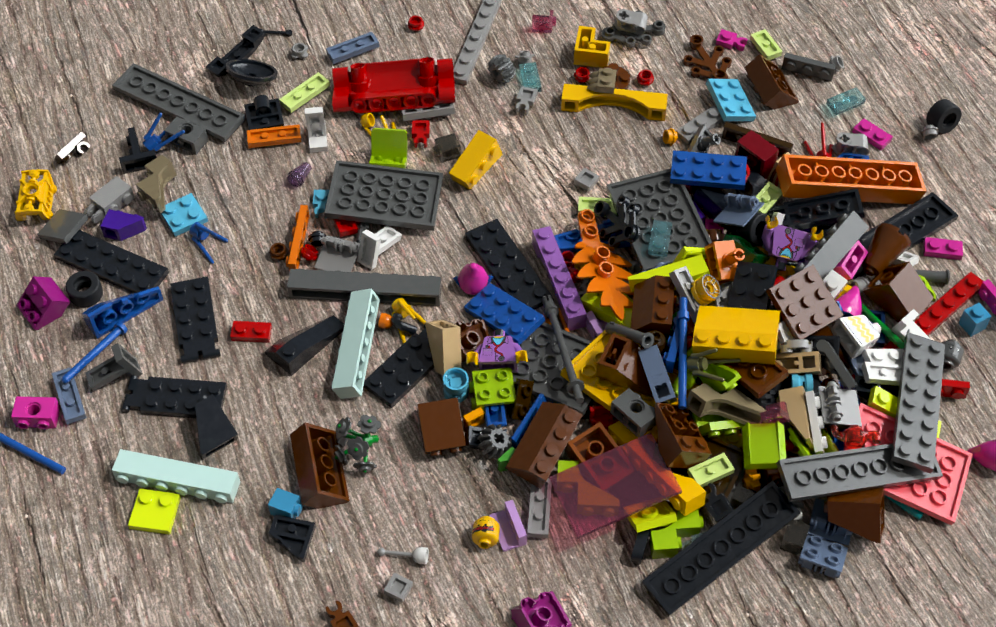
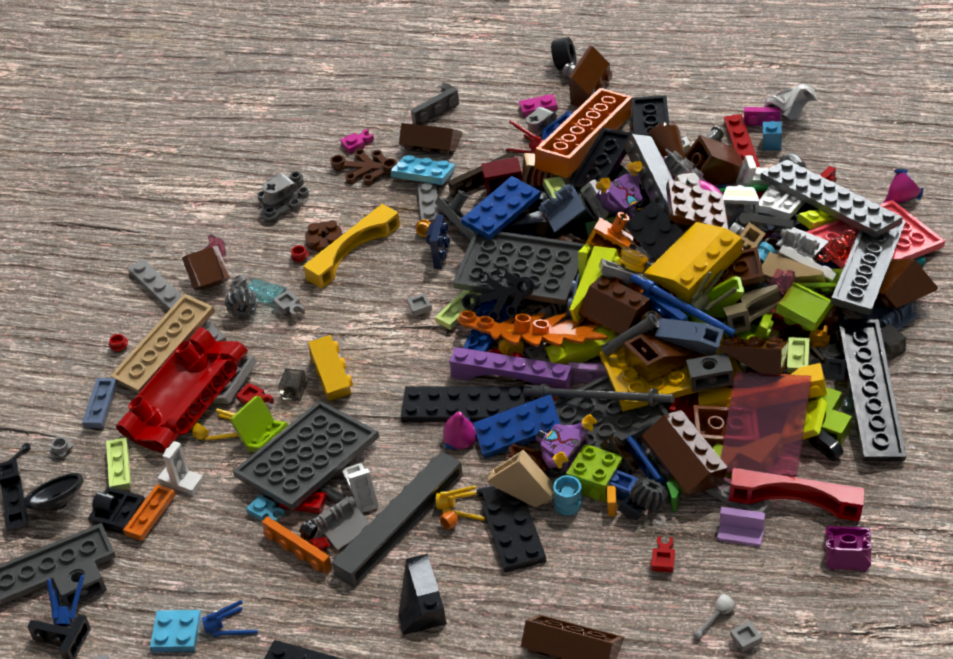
camera: 50 degrees left, 10 degrees down
(151, 189) = (124, 637): dark tan arch -> none
(251, 331) = (370, 633): red plate -> none
(278, 247) = (297, 565): reddish brown plate -> none
(299, 174) = (217, 512): clear purple cone -> none
(355, 344) = (459, 550): light aqua brick -> none
(358, 442) = (587, 587): dark grey plant -> none
(396, 321) = (465, 508): black arm -> none
(441, 426) = (602, 526): reddish brown slope -> none
(441, 487) = (663, 556): none -> red plate
(454, 45) = (161, 342): none -> tan plate
(485, 532) = (737, 544): yellow head -> none
(519, 28) = (206, 268): none -> reddish brown slope
(545, 510) = (837, 499): none -> red arch
(590, 51) = (280, 233): yellow brick -> none
(602, 80) = (327, 237): dark tan plate -> none
(645, 77) = (343, 213): red plate -> none
(655, 153) = (438, 240): none -> dark blue plate
(660, 238) = (544, 272): clear light blue plate -> none
(766, 44) = (384, 121): yellowish green plate -> none
(823, 554) = (922, 334): sand blue hinge -> none
(846, 101) = (491, 103): clear light blue plate -> none
(861, 271) = (678, 166): none -> light grey hinge
(928, 147) = (588, 76): none -> reddish brown slope
(943, 248) = (689, 120): dark pink plate -> none

